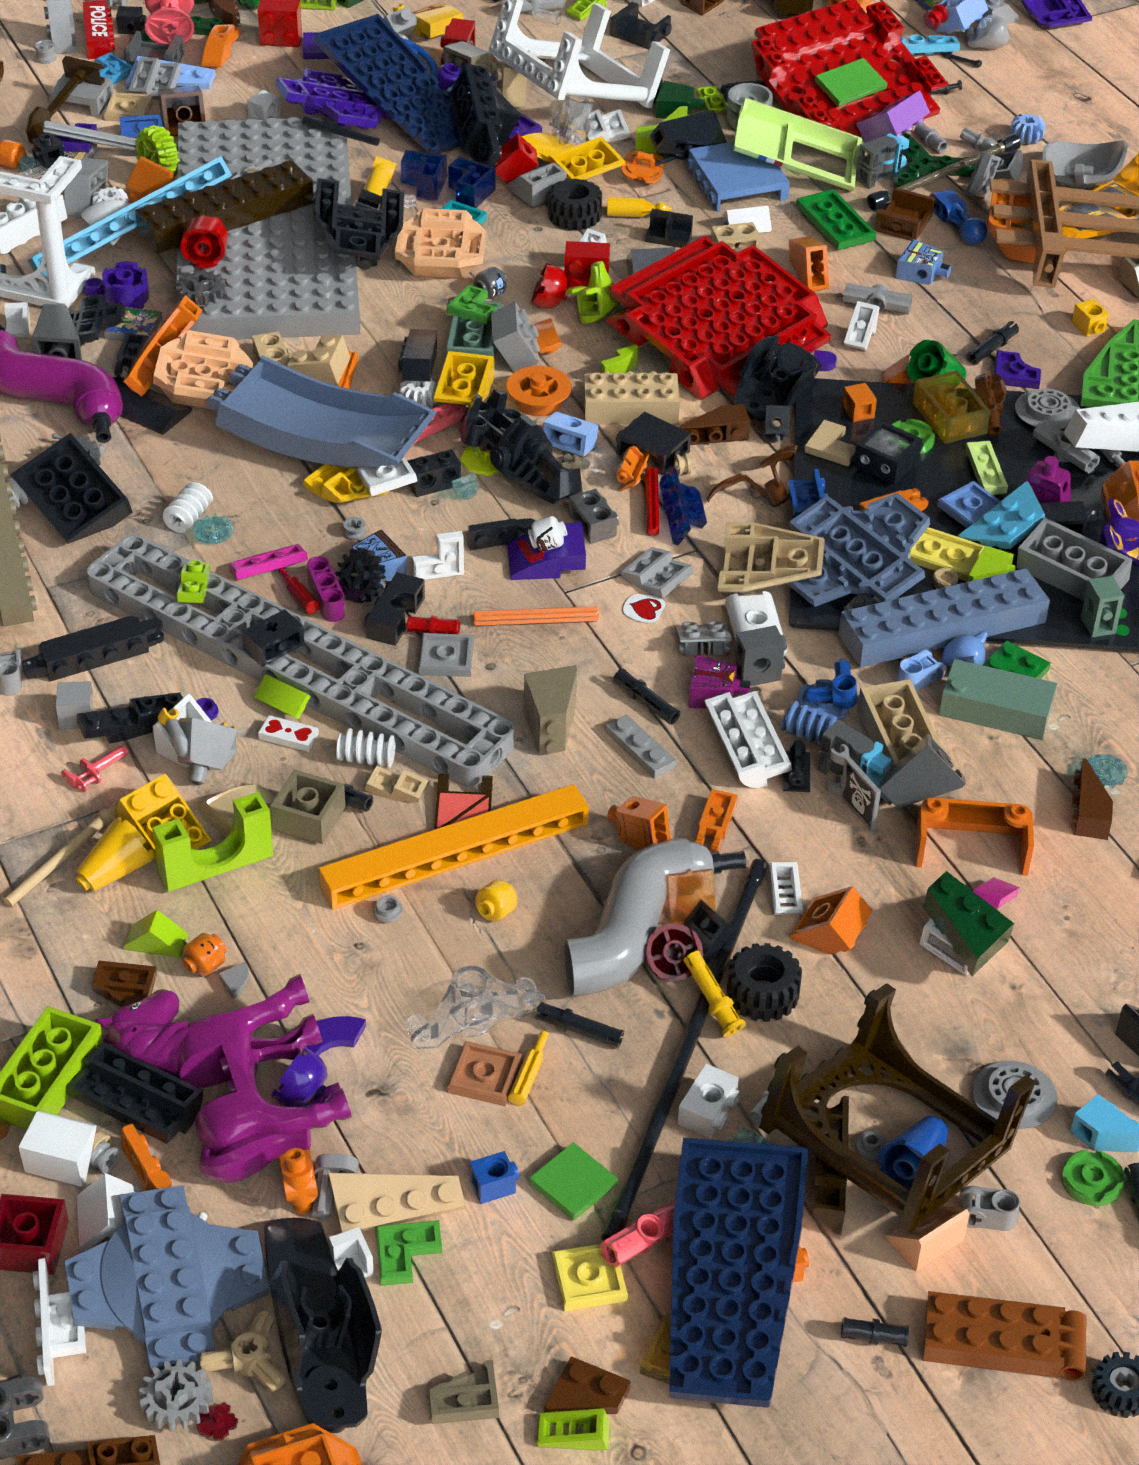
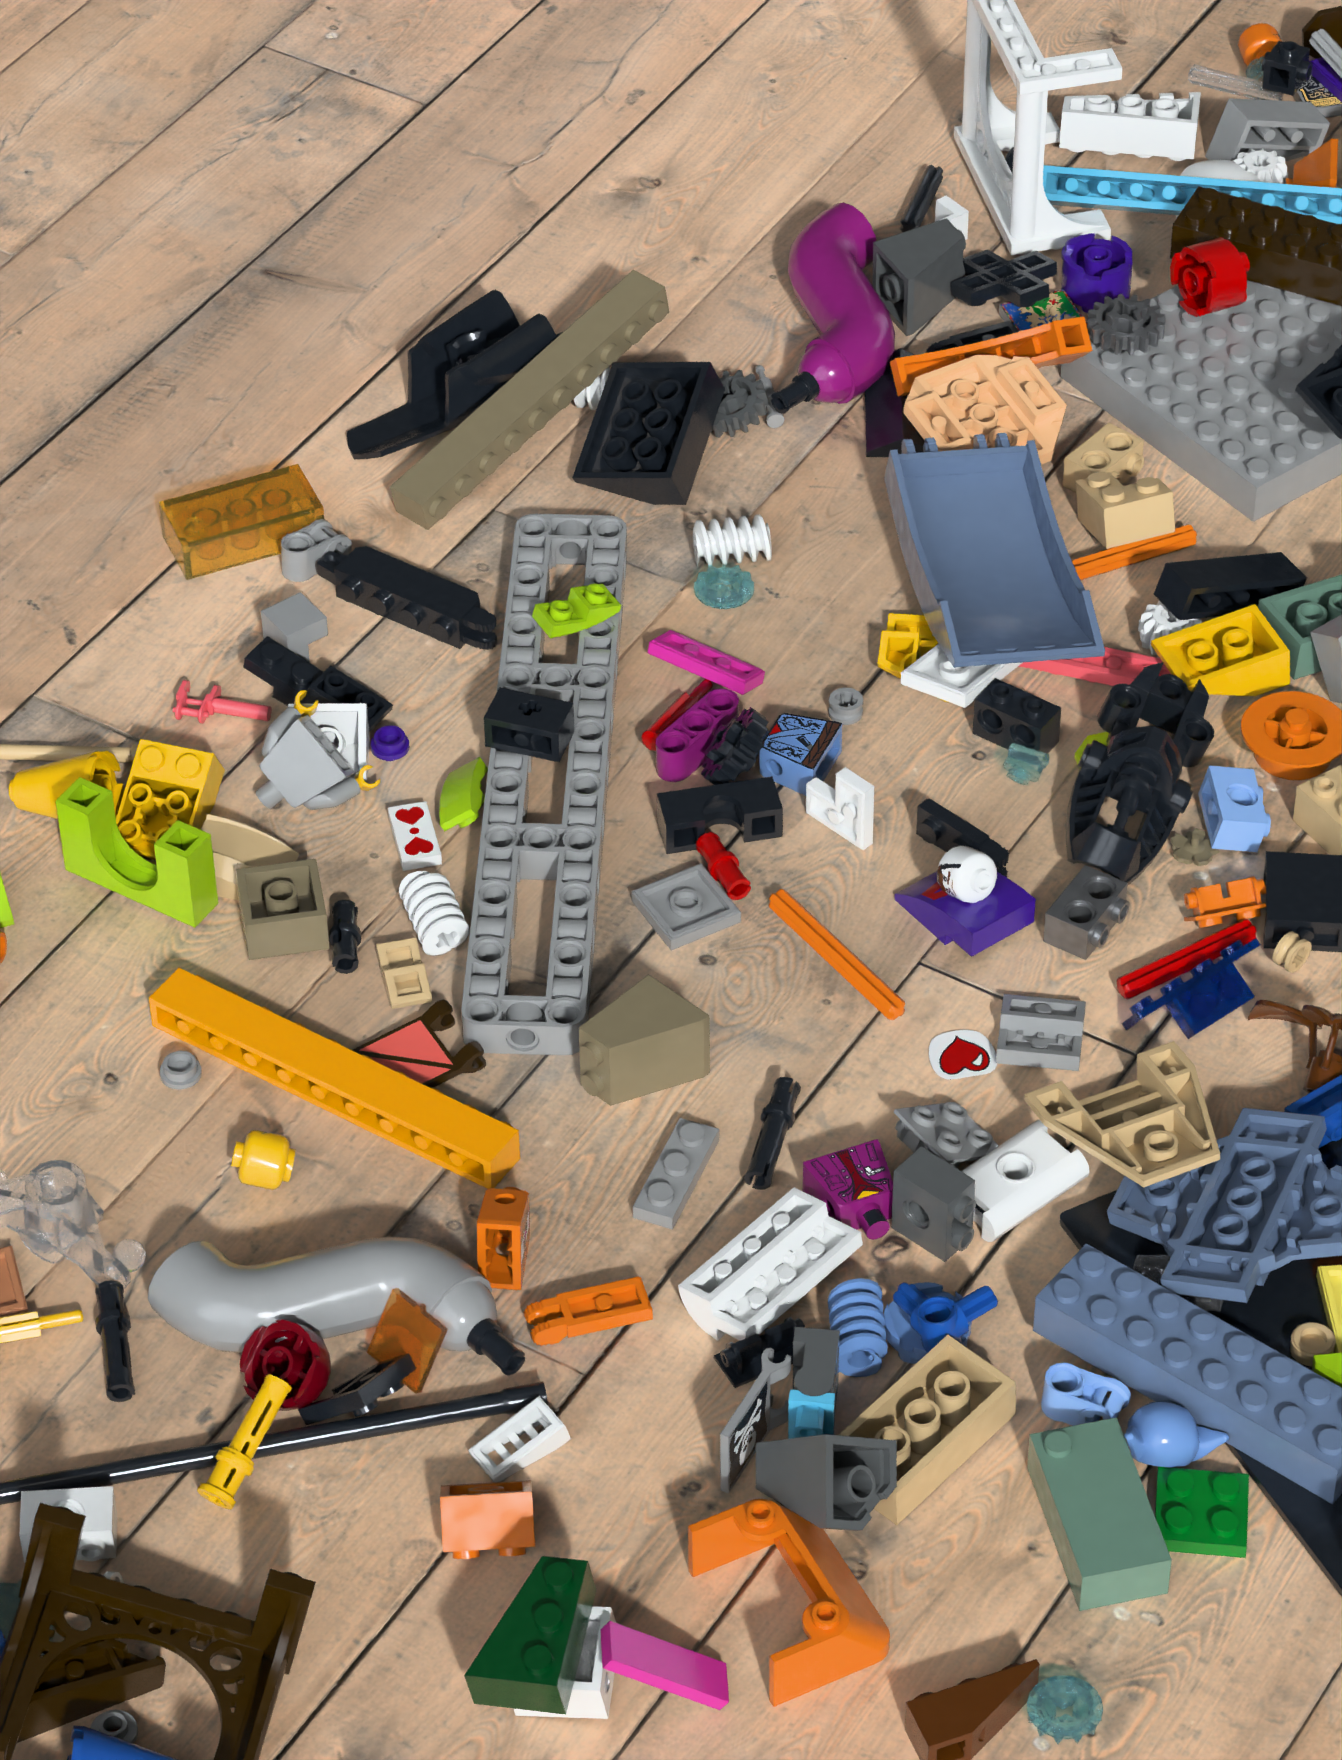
camera: 60 degrees right, 0 degrees up
(768, 965) = (312, 1515): black tyre -> none

